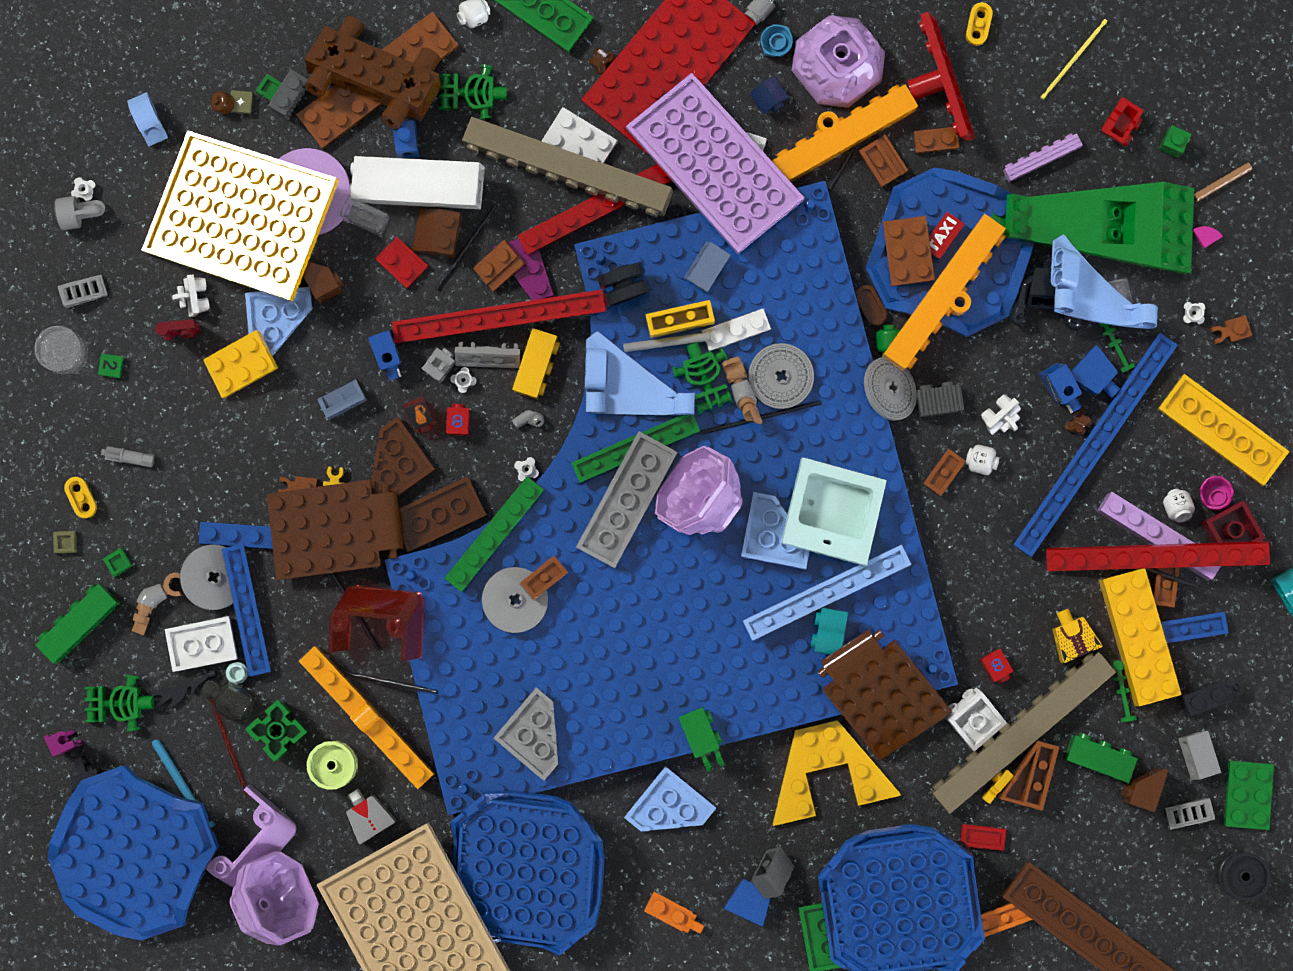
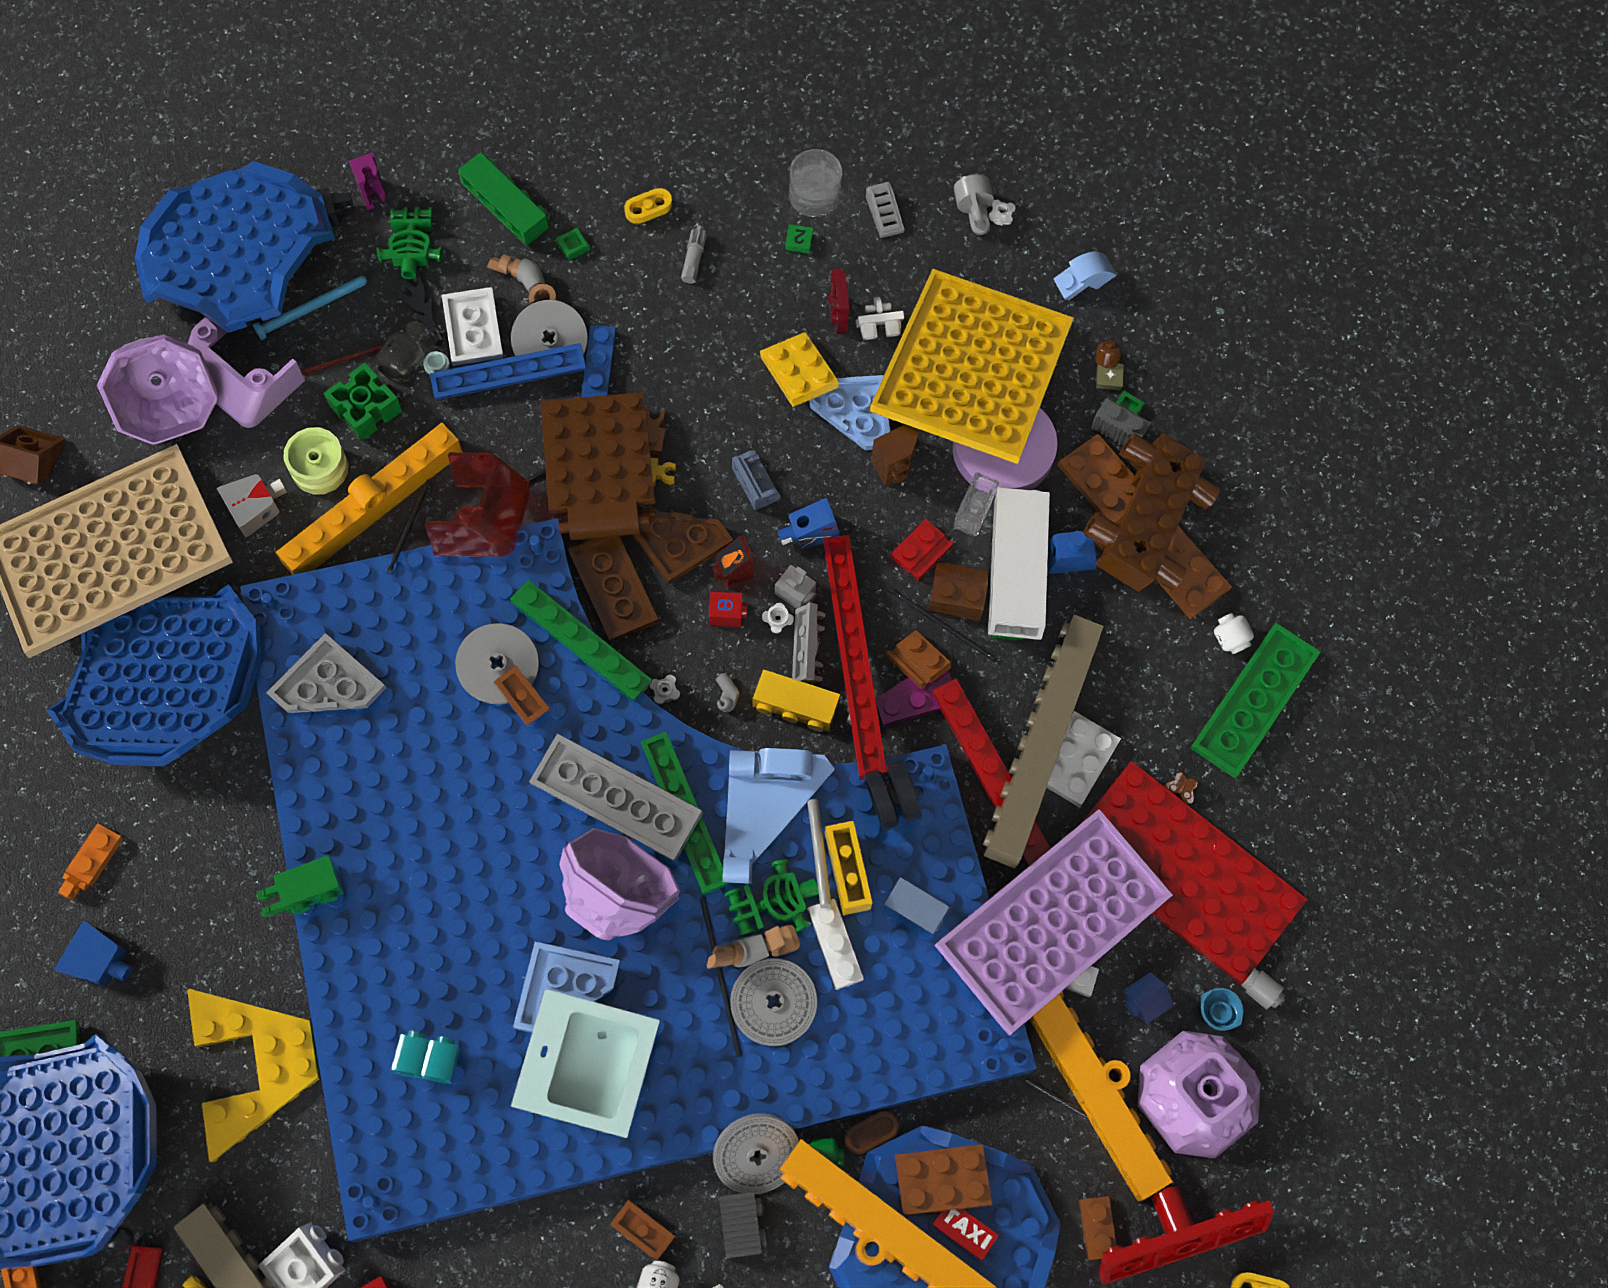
camera: 85 degrees right, 15 degrees down
(65, 542) = (598, 192): olive tile -> none
(493, 93) = (1139, 645): green piece -> none
(669, 805) = (228, 857): light blue plate -> none
(773, 873) = (120, 983): dark grey brick -> none
(826, 592) = (480, 1057): light blue plate -> none
(881, 692) = (341, 1129): reddish brown plate -> none
(883, 161) = (1066, 1152): dark orange plate -> none

